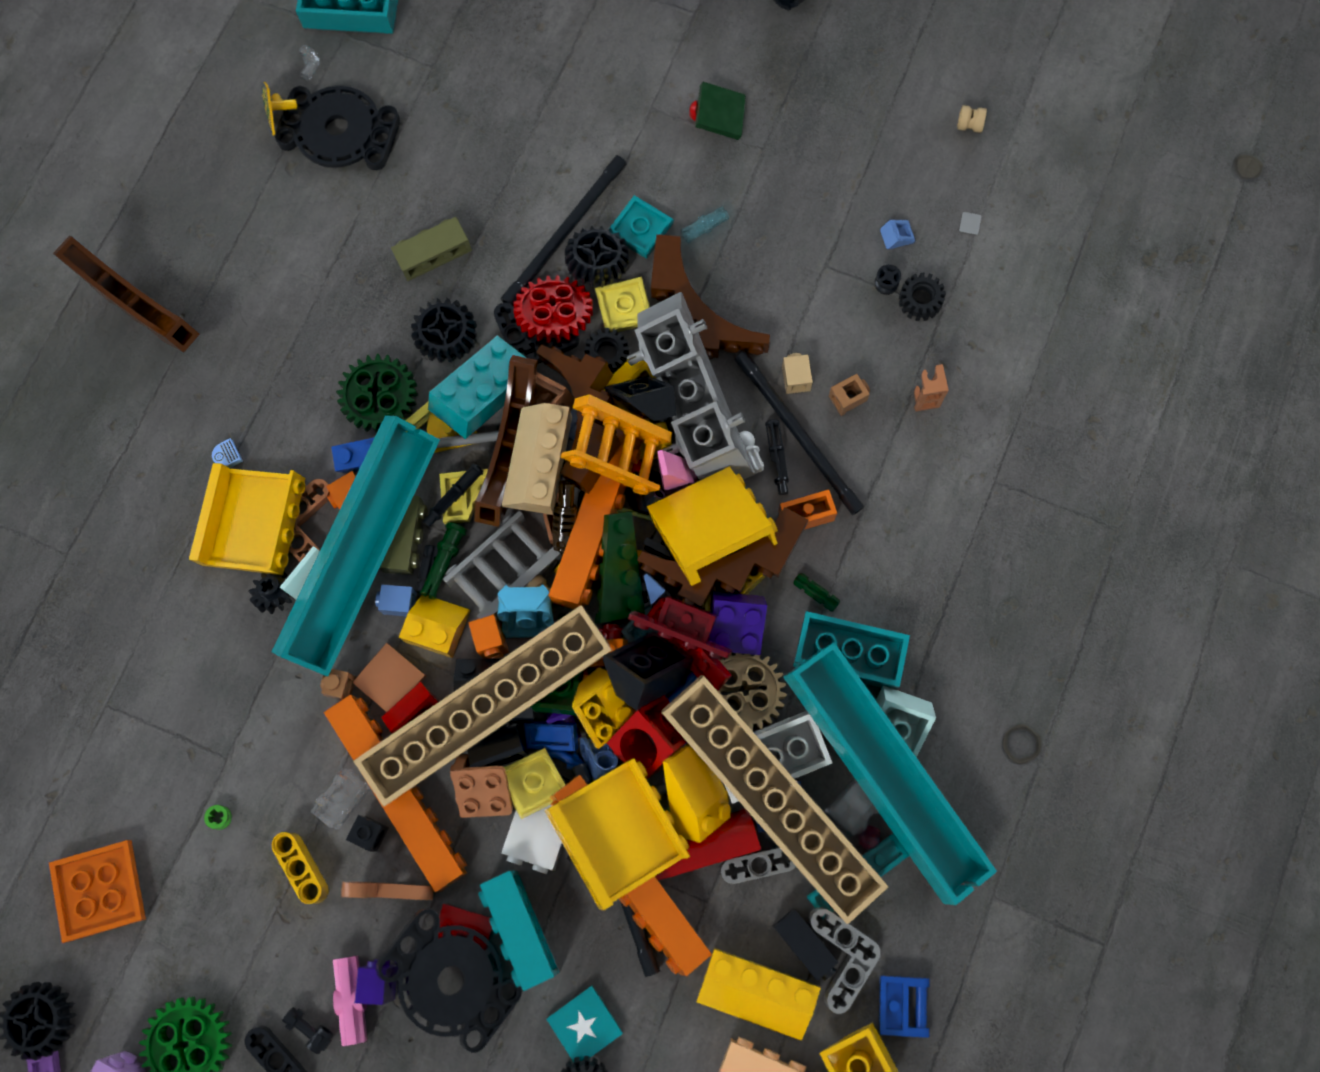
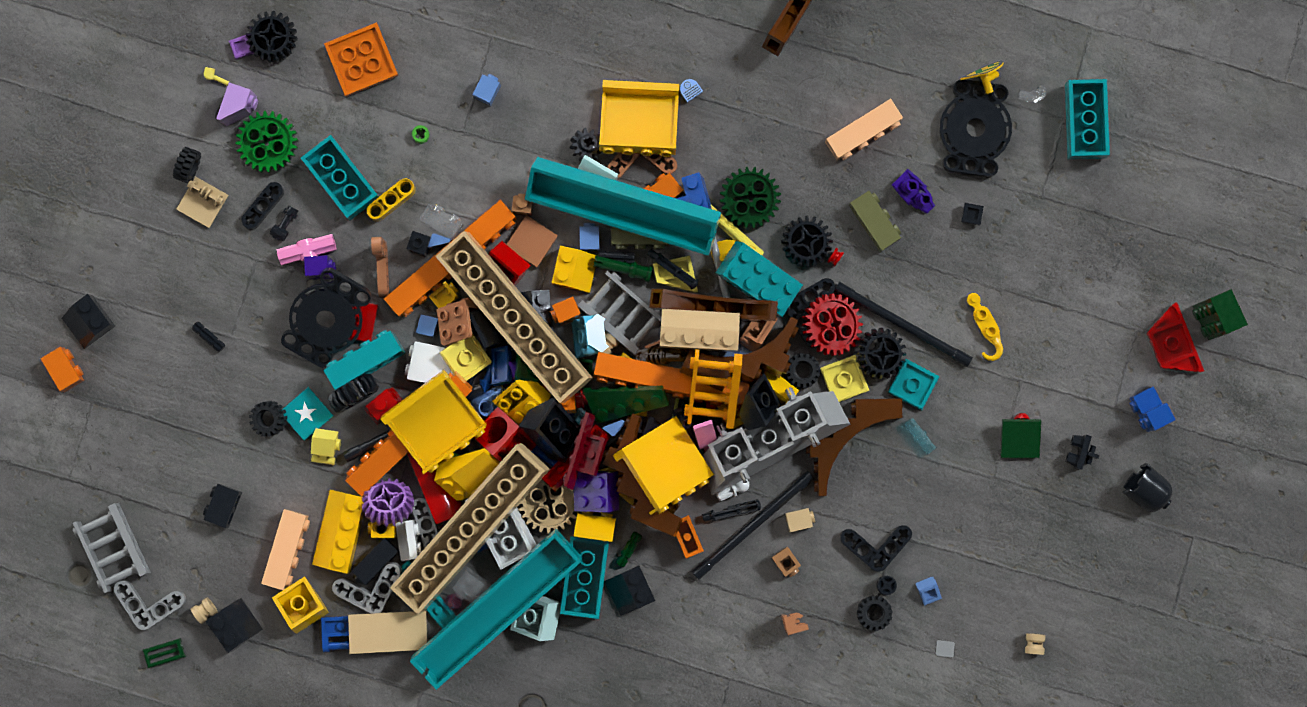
camera: 80 degrees right, 10 degrees up
(173, 717) = (487, 89): none -> medium blue brick
(253, 939) = (339, 177): none -> teal brick
(315, 250) = (863, 130): none -> light nougat brick
(368, 806) = (438, 241): none -> medium blue slope
(404, 201) = (913, 191): none -> dark purple connector
(440, 139) = (972, 214): none -> black plate
(443, 805) = (444, 295): none -> yellow bracket
(469, 298) = (835, 257): none -> red bush
(483, 835) = (427, 326): none -> medium blue slope
(562, 951) = (353, 393): none -> black gear
(578, 137) = (986, 325): none -> yellow piece
(585, 911) = (382, 404): none -> red torso
(631, 1002) = (324, 444): none -> light yellow brick
(712, 916) = (398, 496): none -> medium lavender gear
(744, 45) = (1083, 443): none -> black hips
(752, 917) = (390, 532): none -> yellow brick
(780, 893) = (408, 540): none -> white bracket
(784, 630) = (595, 527): none -> yellow slope
(846, 290) = (873, 553): none -> black beam
(872, 593) = (630, 590): none -> black slope
(907, 939) = (387, 632): none -> tan tile

